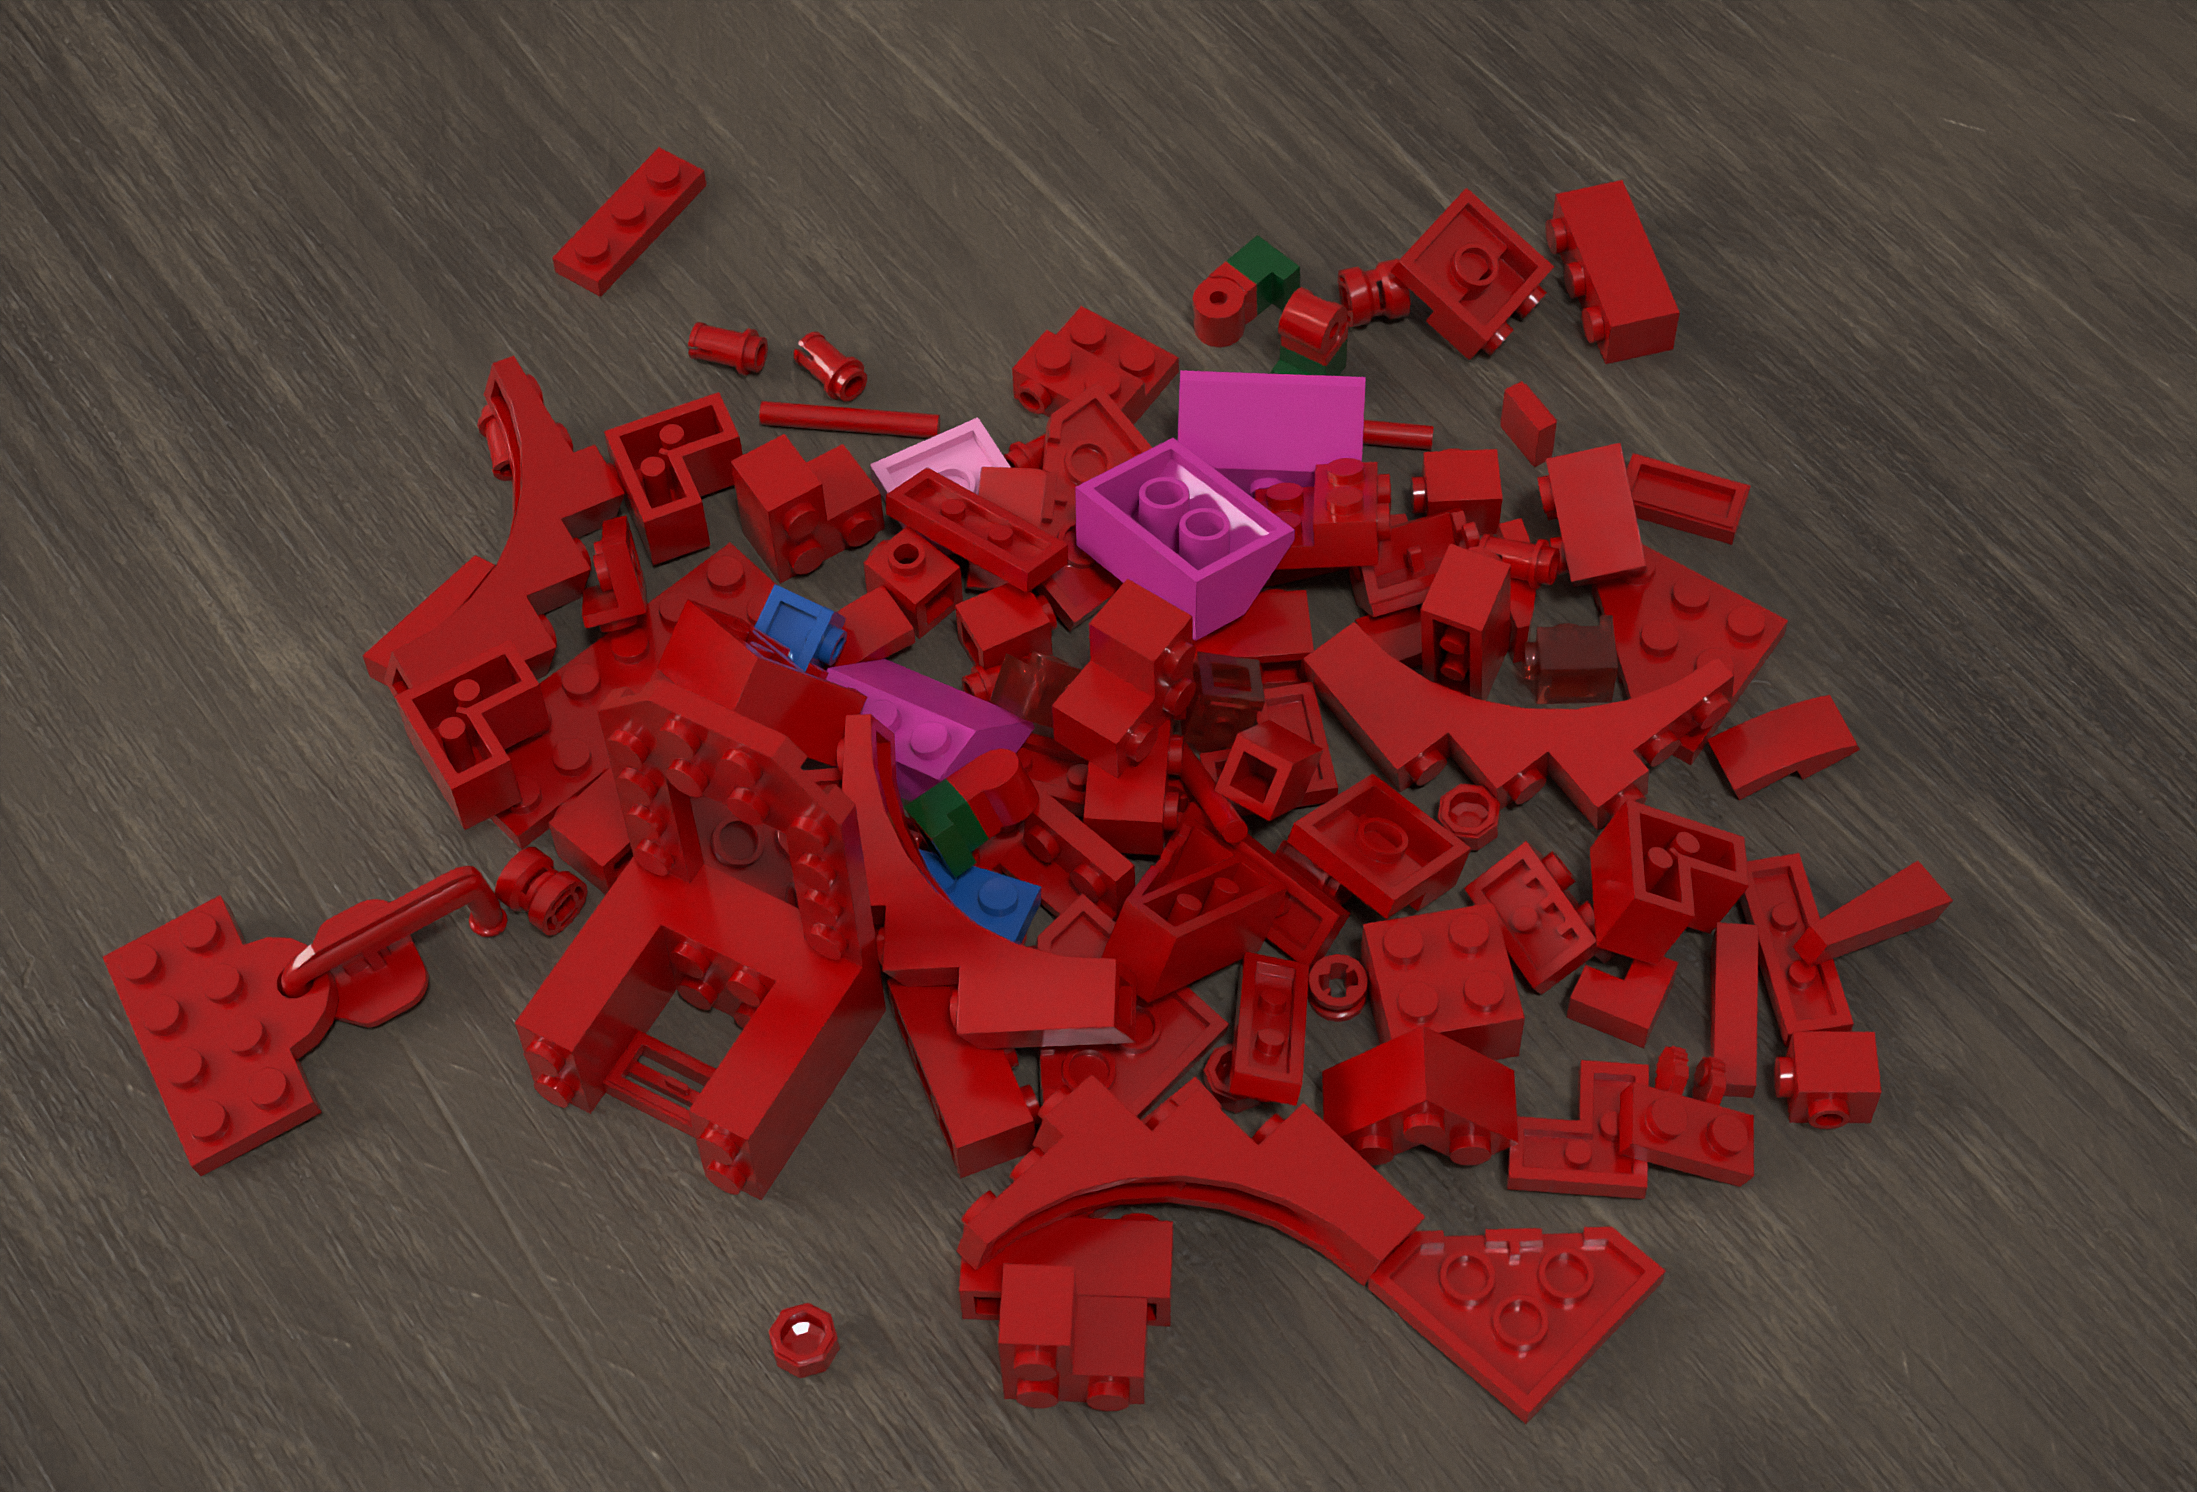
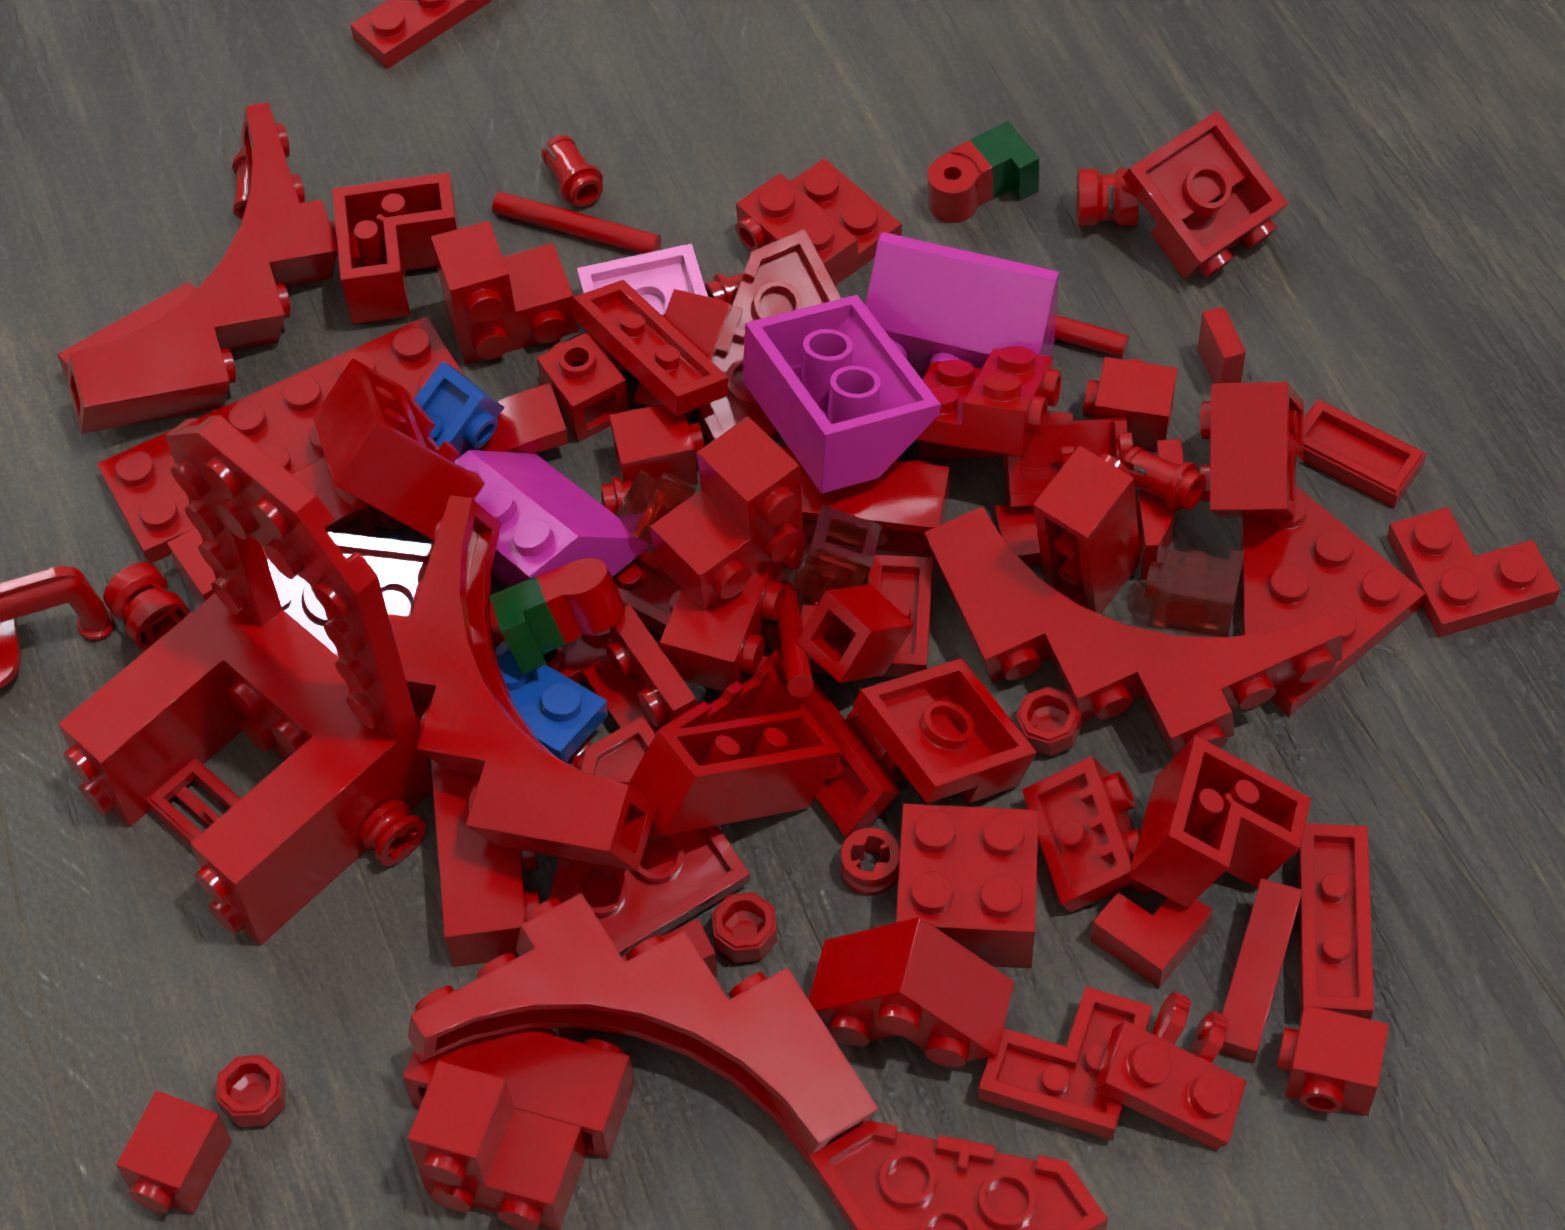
camera: 15 degrees right, 0 degrees up
(465, 724) = (115, 433): red brick -> none
(621, 580) = (306, 326): red bracket -> none
(741, 350) = (495, 140): red pin -> none
(749, 1417) = (173, 1154): none -> red brick
(863, 1060) = (392, 832): none -> red bush
(1269, 1029) = (782, 887): red plate -> none
(1312, 336) = (1030, 225): red leg -> none
(1612, 272) = (1347, 221): red brick -> none
(1783, 741) = (1385, 711): red slope -> none
(1820, 607) = (1468, 588): none -> red plate
(1887, 910) = (1439, 903): red piece -> none

